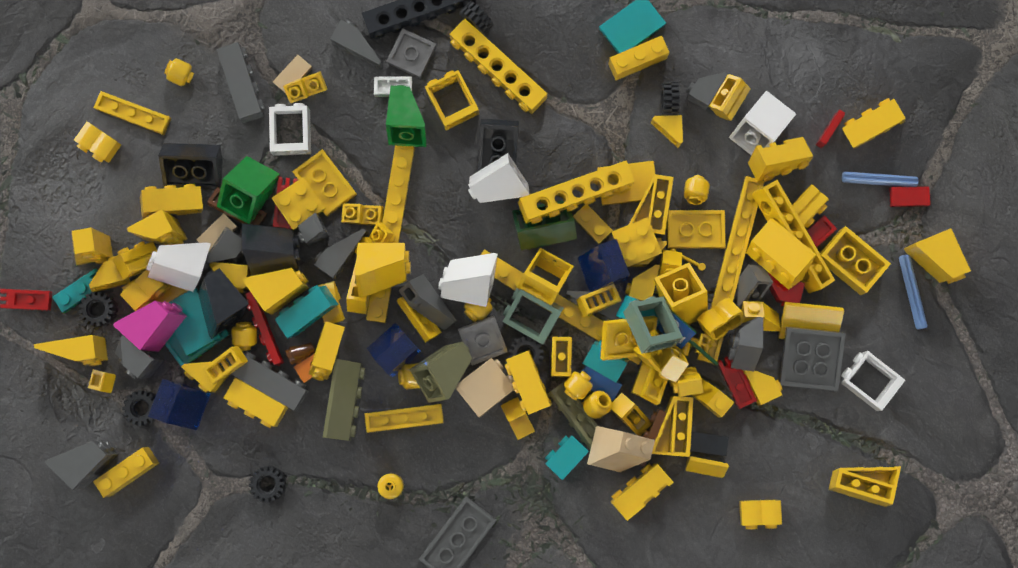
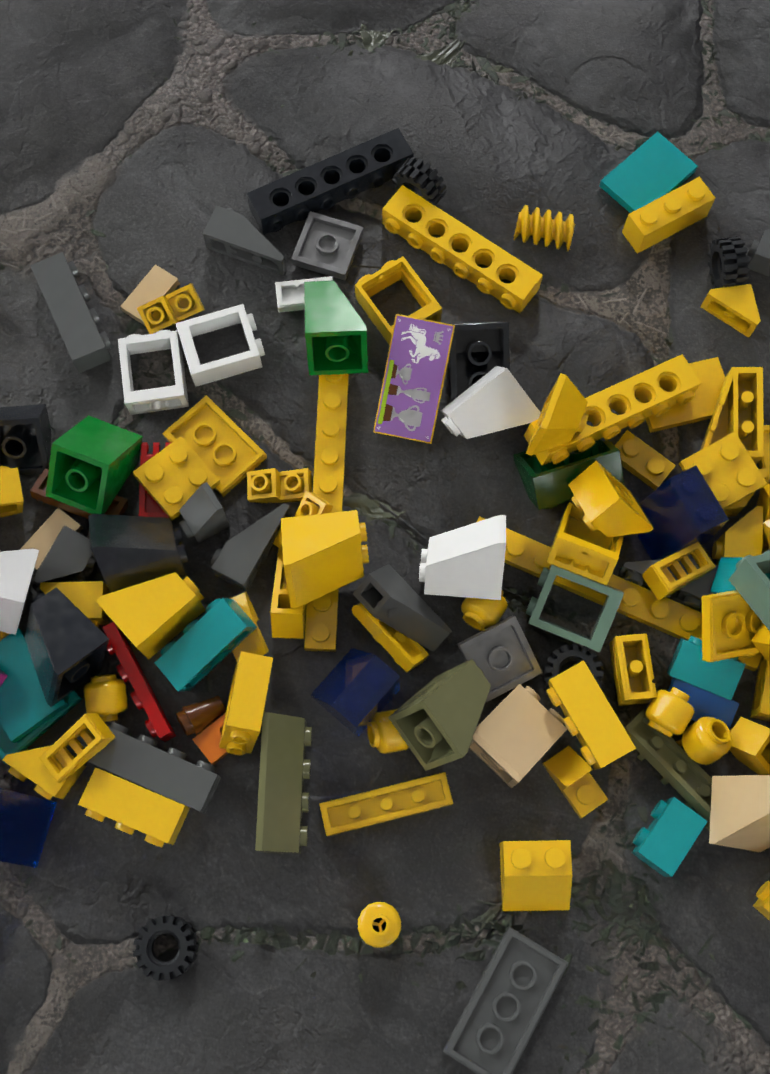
camera: 10 degrees left, 10 degrees down
(320, 134) = (226, 366): none -> white window
(454, 155) = (414, 378): none -> medium lavender tile
(484, 469) = (536, 875): none -> yellow slope
(536, 200) = (559, 417): none -> yellow slope
(555, 57) = (545, 227): none -> yellow piece
(562, 253) = (607, 503): none -> yellow slope

